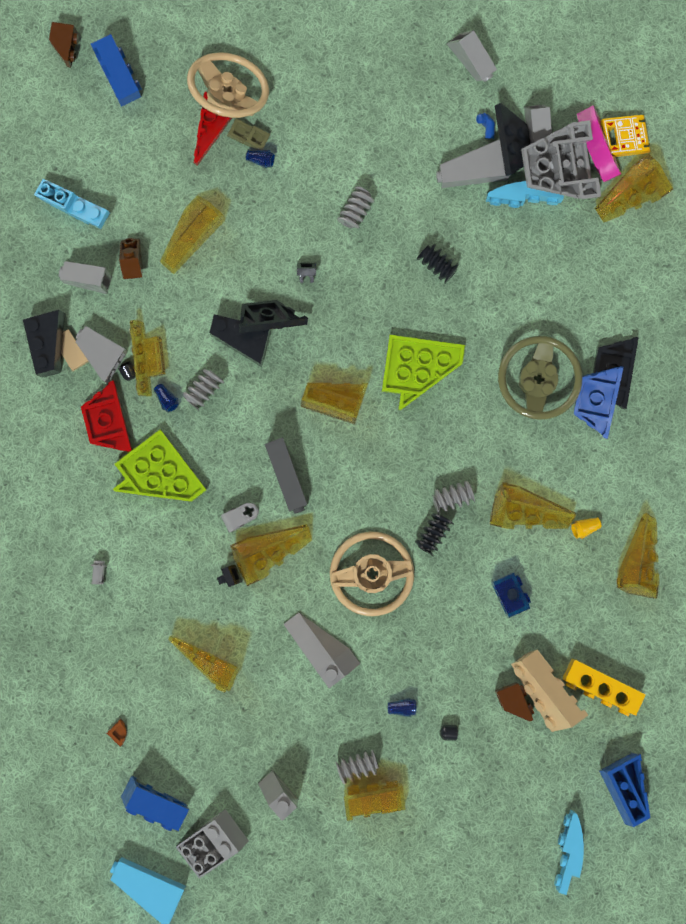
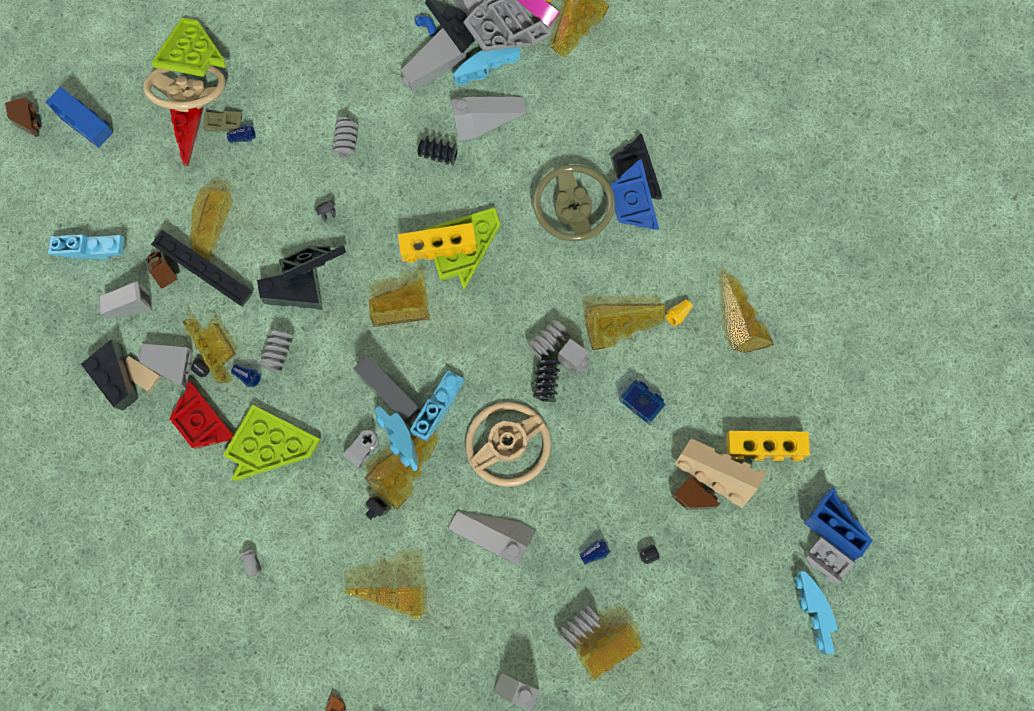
camera: 20 degrees left, 10 degrees down
(168, 276) = (202, 268): none -> black plate
(247, 48) = (188, 50): none -> lime wing
(277, 525) = (399, 437): none -> medium azure slope
(324, 511) = (437, 406): none -> medium azure slope
(406, 353) = (427, 238): none -> yellow brick
(468, 526) = (573, 358): none -> light grey brick
(495, 245) = (484, 114): none -> light grey wedge
(604, 814) = (829, 560): none -> light grey bracket

